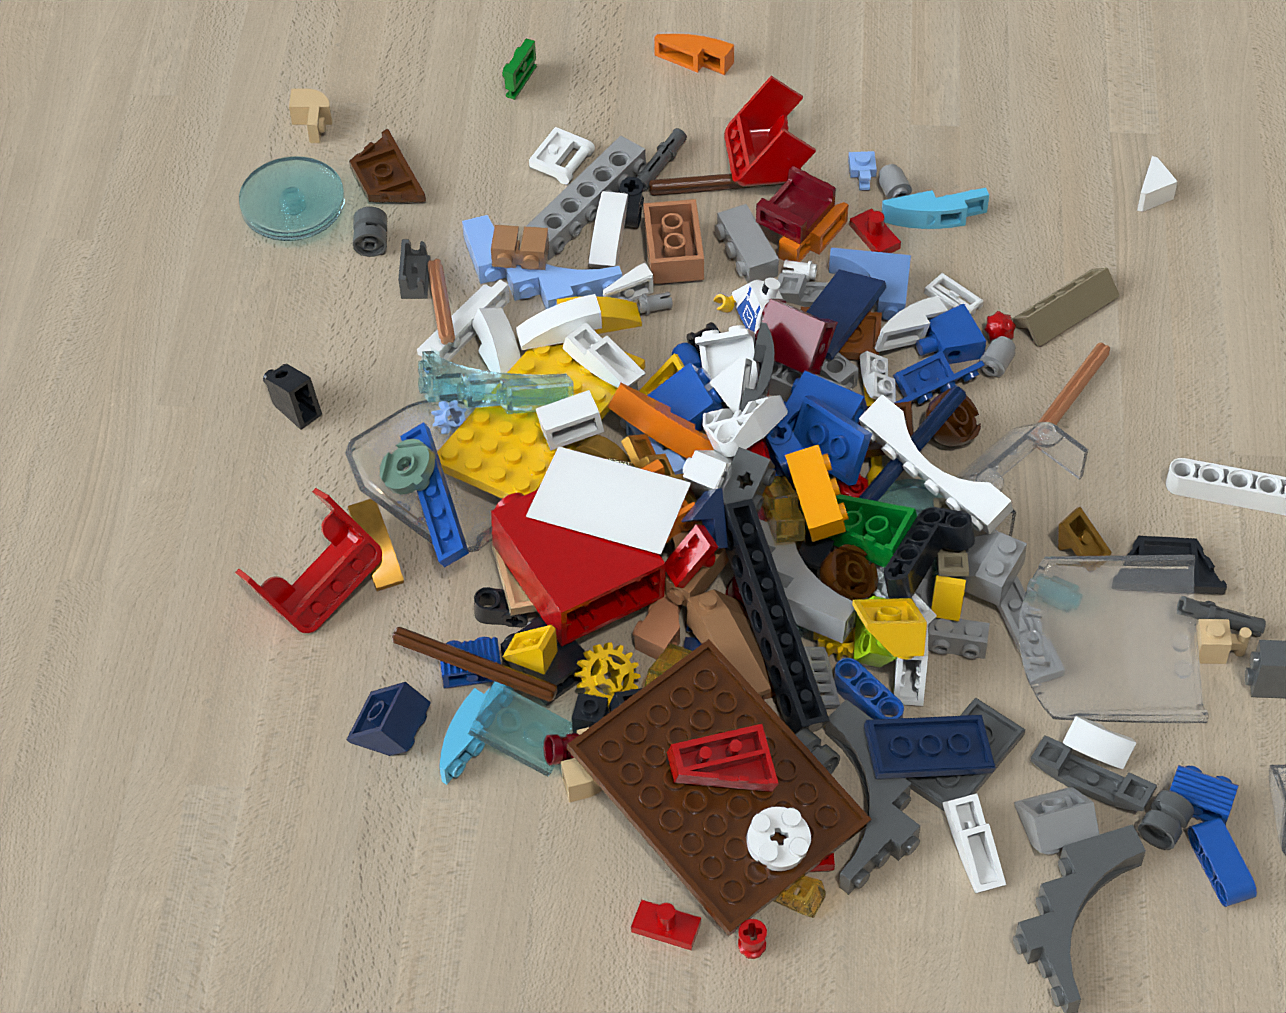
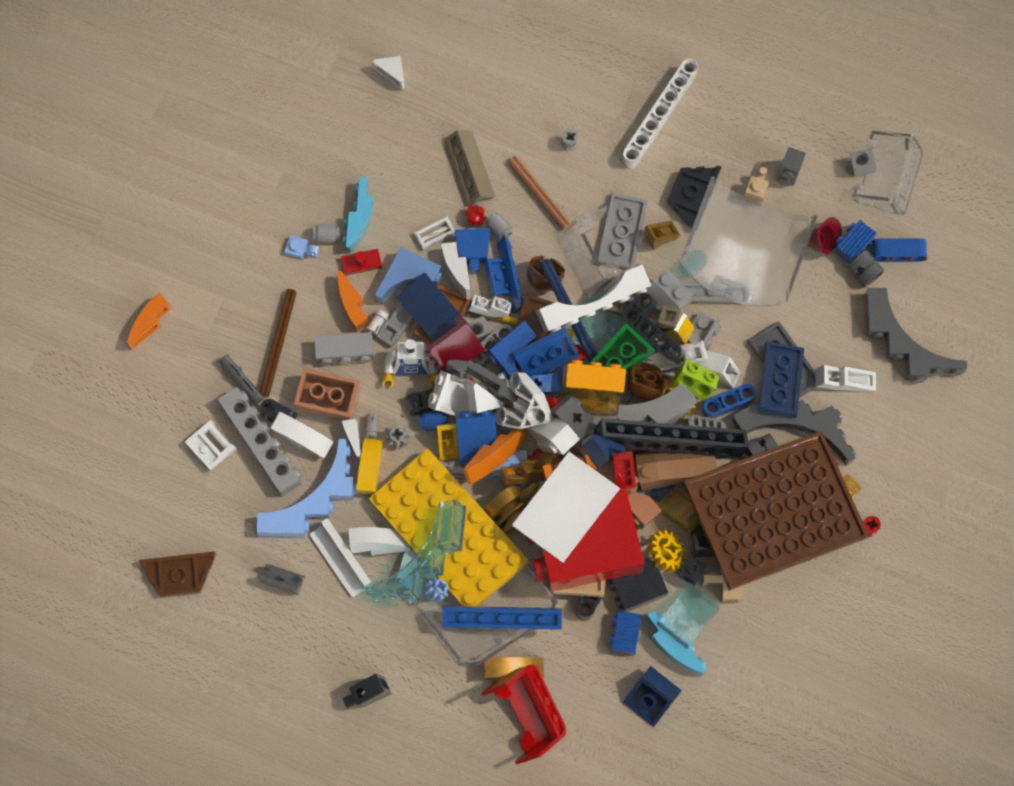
camera: 75 degrees left, 20 degrees up
(291, 198) = (185, 646): clear light blue dish -> none
(310, 109) = (94, 609): tan brick -> none
(370, 231) = (230, 596): dark grey wheel -> none
(418, 473) = (488, 624): sand green plate -> none
(441, 301) = (322, 567): nougat axle -> none
(474, 664) = (637, 630): reddish brown axle -> none
(519, 68) = (122, 453): green plate -> none
(533, 249) = (300, 508): medium nougat piece -> none
(533, 648) = (641, 591): yellow slope -> none
(556, 748) = (712, 594): dark red wheel -> none
(559, 321) = (383, 493): white slope -> none
(570, 420) = (480, 511): white brick -> none
(602, 357) = (426, 474): white slope -> none
(651, 331) = (393, 432): none -> light grey gear
(666, 924) = (843, 572): red tile -> none
(725, 760) = (773, 500): red wedge -> none
(759, 138) = (261, 314): red windscreen -> none
(769, 852) = (831, 480): white plate -> none
(797, 206) = (334, 304): dark red panel -> none
(894, 624) = (709, 367): yellow slope -> none
(1049, 500) = (622, 230): none -> light grey tile
(1057, 819) = (845, 327): light grey slope -> none
(1090, 779) = (824, 296): dark grey slope -> none
(1099, 742) = (806, 284): white slope -> none
(1168, 402) = (570, 134): none -> light grey bush
(1190, 746) = (825, 236): none -> dark red piece
(1209, 610) = (740, 184): dark grey pin -> none

